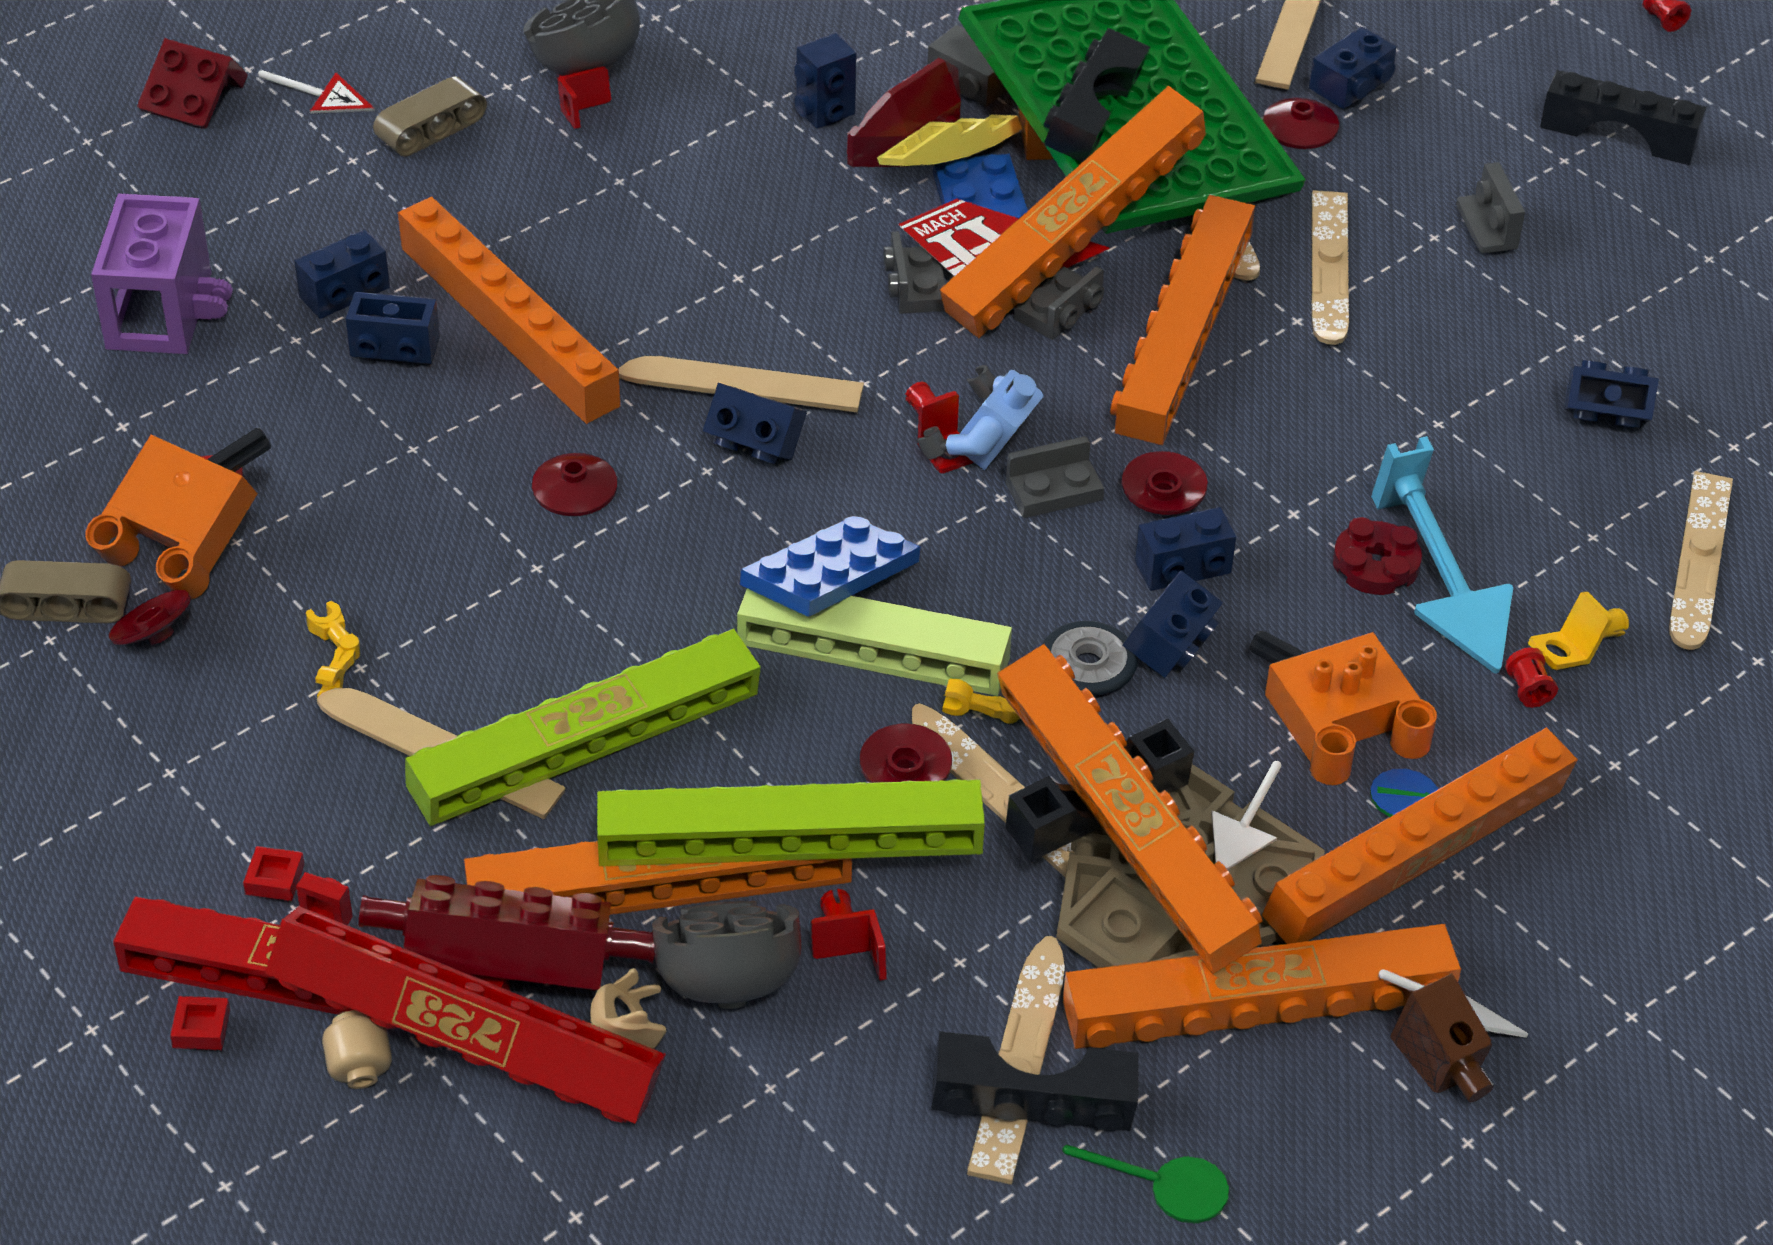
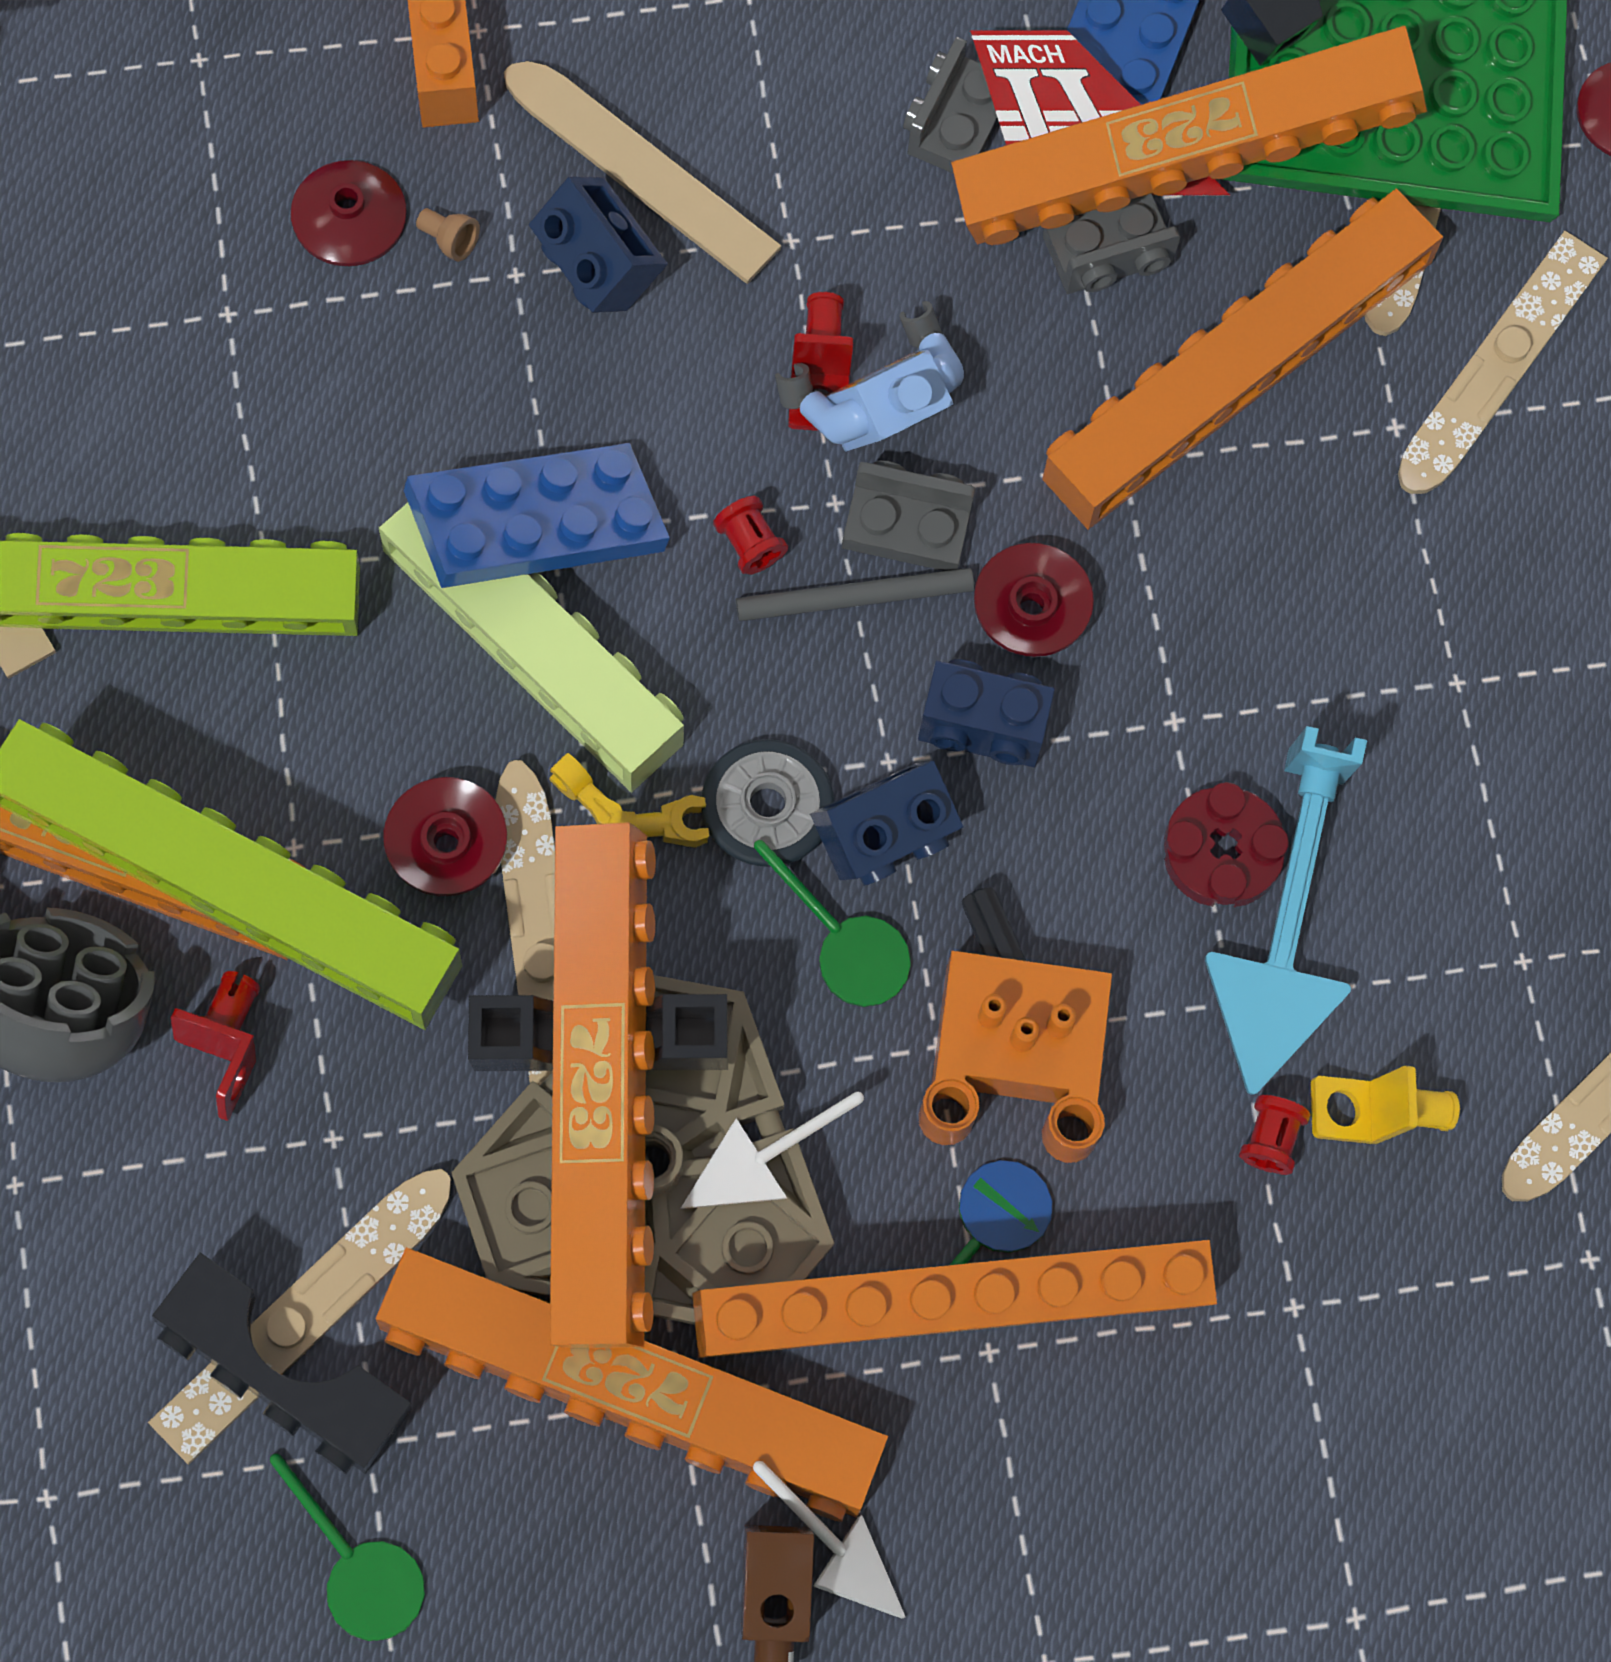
camera: 25 degrees right, 25 degrees up
(654, 461) = (454, 234): none -> medium nougat piece
(966, 527) = (750, 535): none -> red bush
(1051, 534) = (854, 594): none -> dark grey bar
(1206, 709) = (861, 957): none -> green piece

